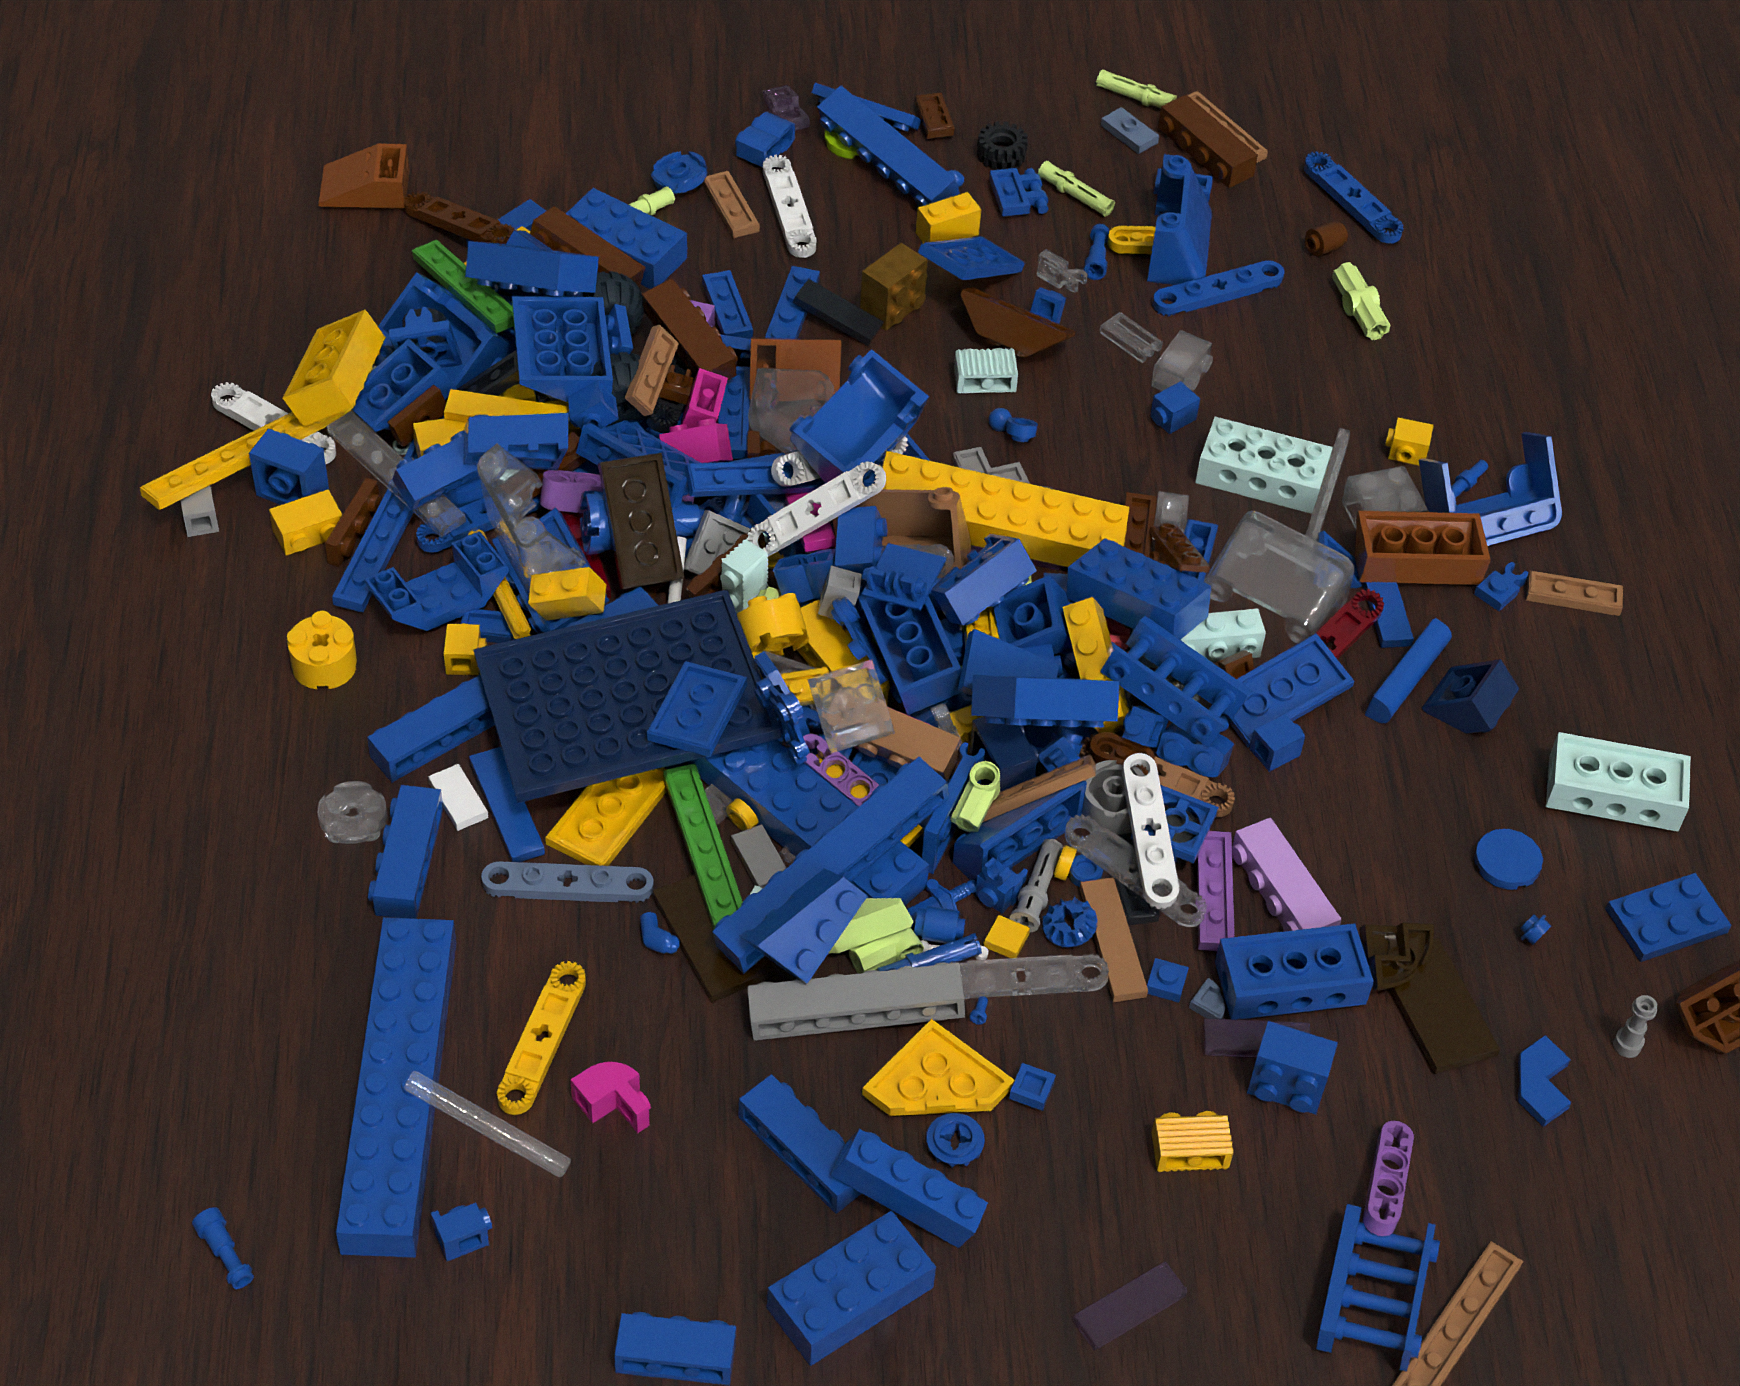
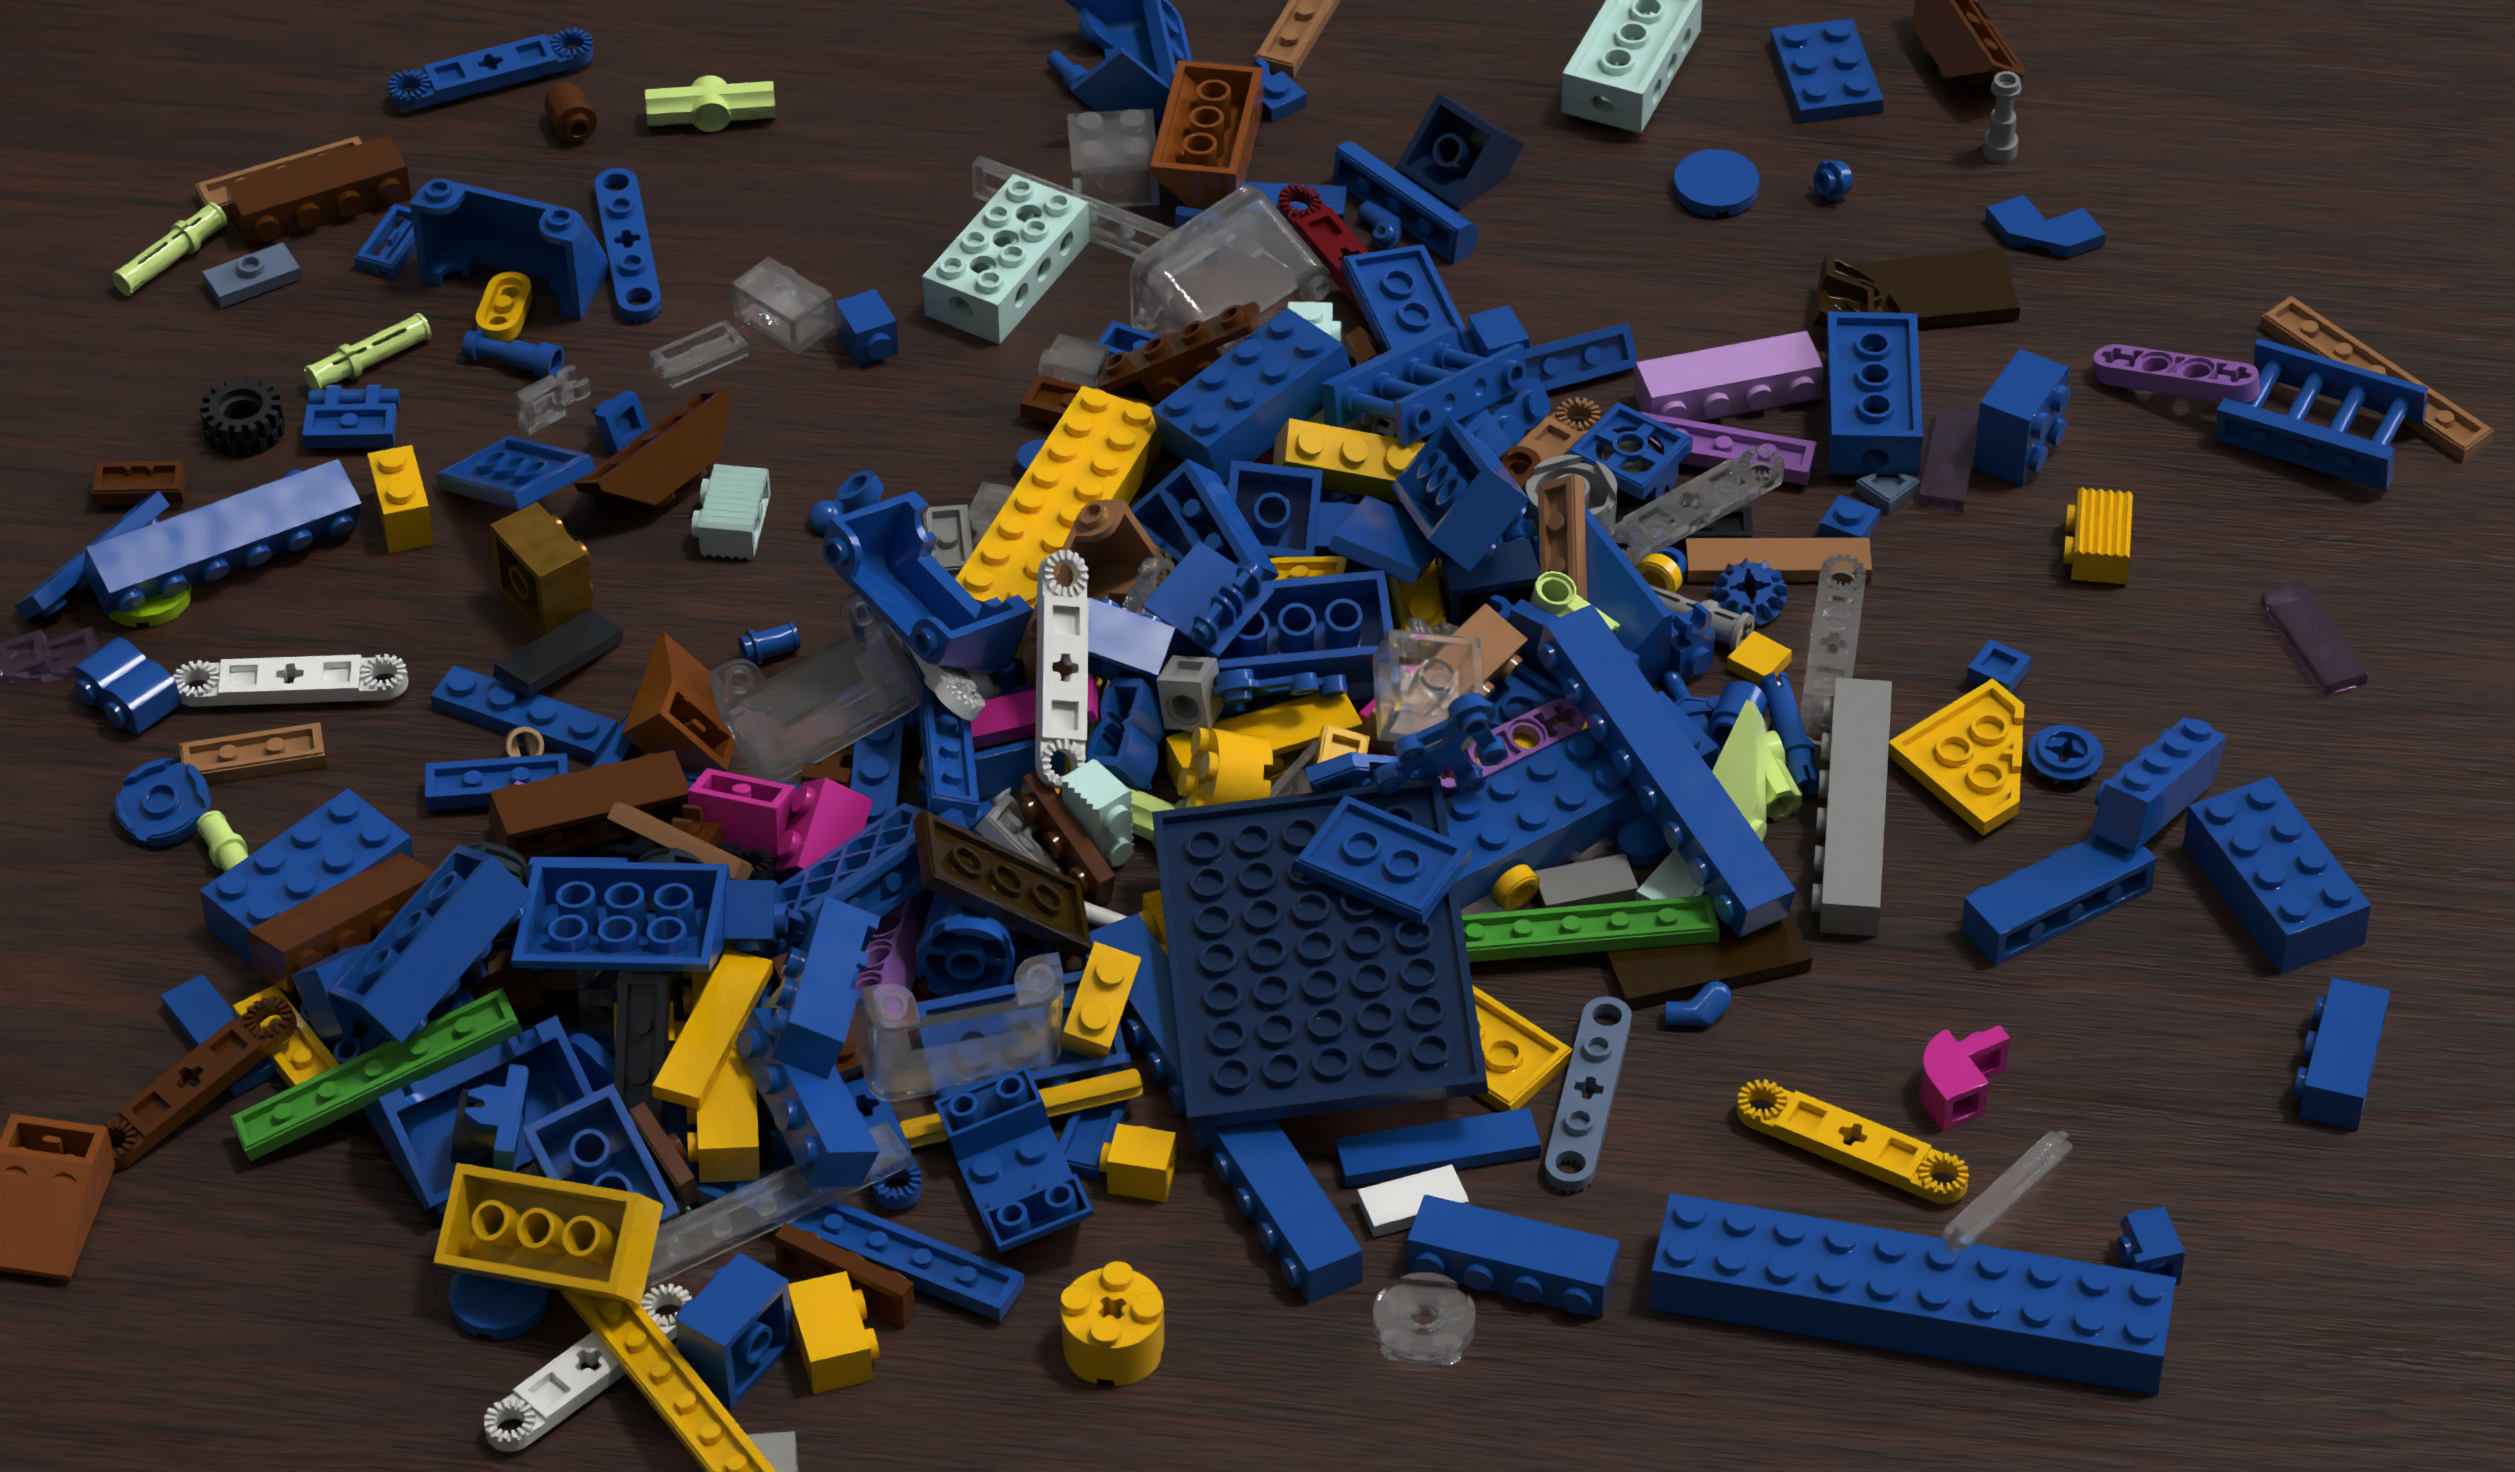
camera: 75 degrees left, 5 degrees down
(759, 312) = (532, 739): none -> tan hinge
(808, 924) = (1770, 794): blue wedge -> none
(1152, 852) = (1628, 462): white piece -> none
(1267, 777) = (1582, 356): none -> blue plate
(1379, 669) = (1385, 224): none -> blue arm
(1409, 441) = (999, 112): yellow brick -> none

